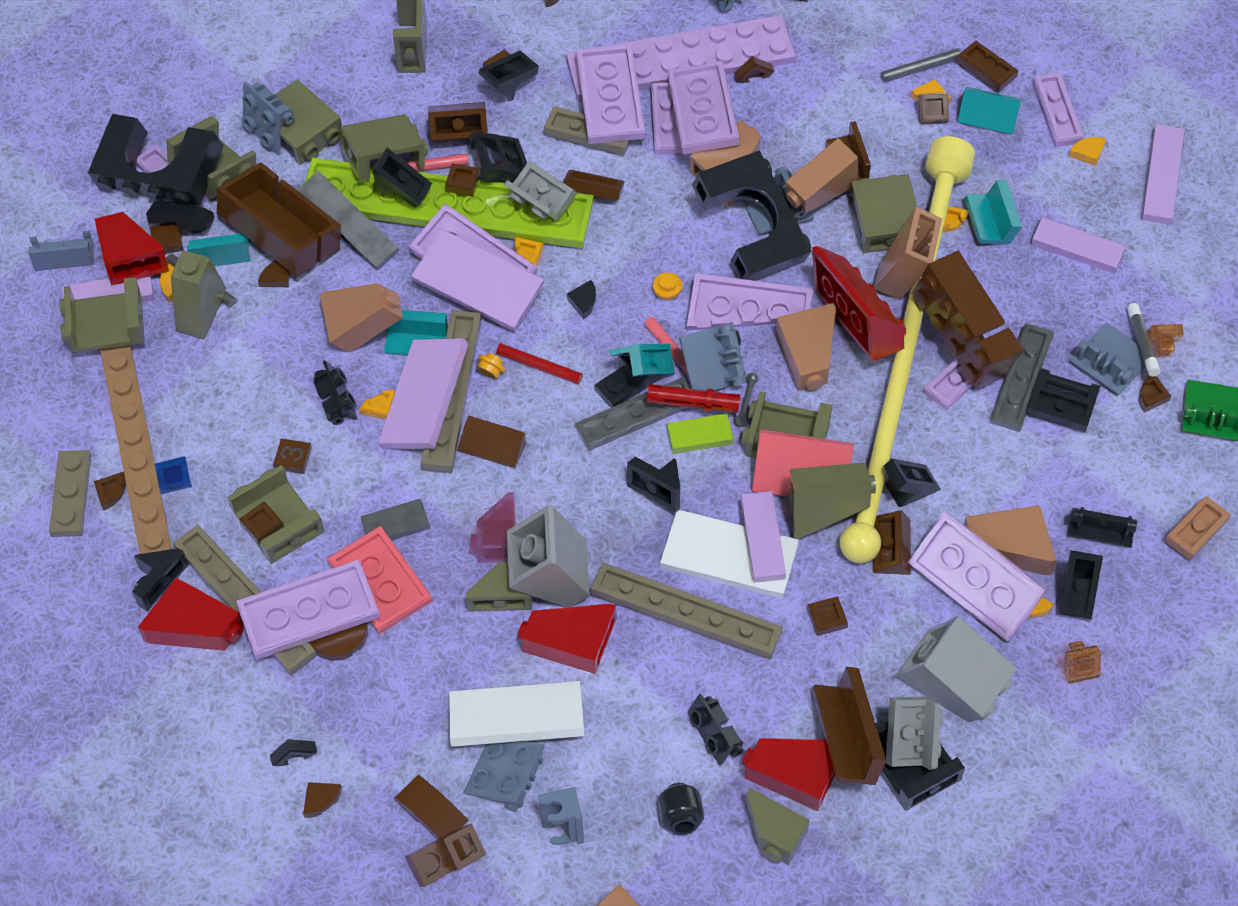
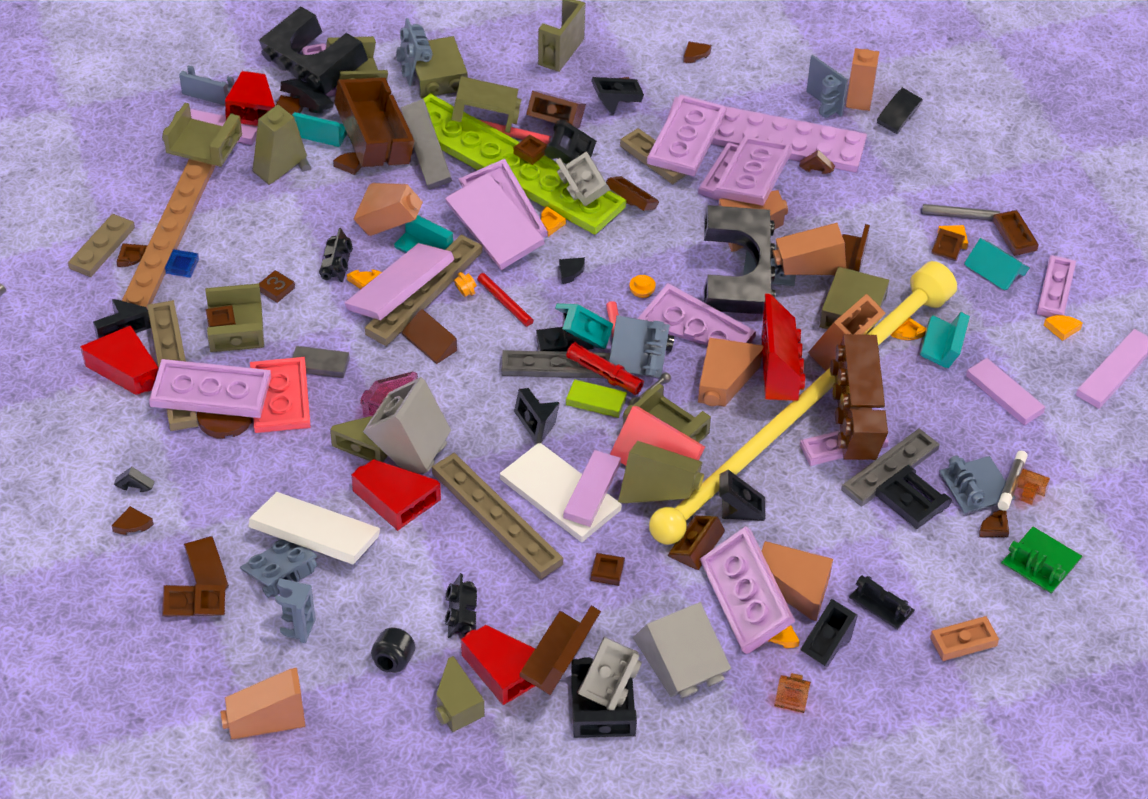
camera: 25 degrees right, 10 degrees down
(396, 175) = (478, 123): black slope -> none

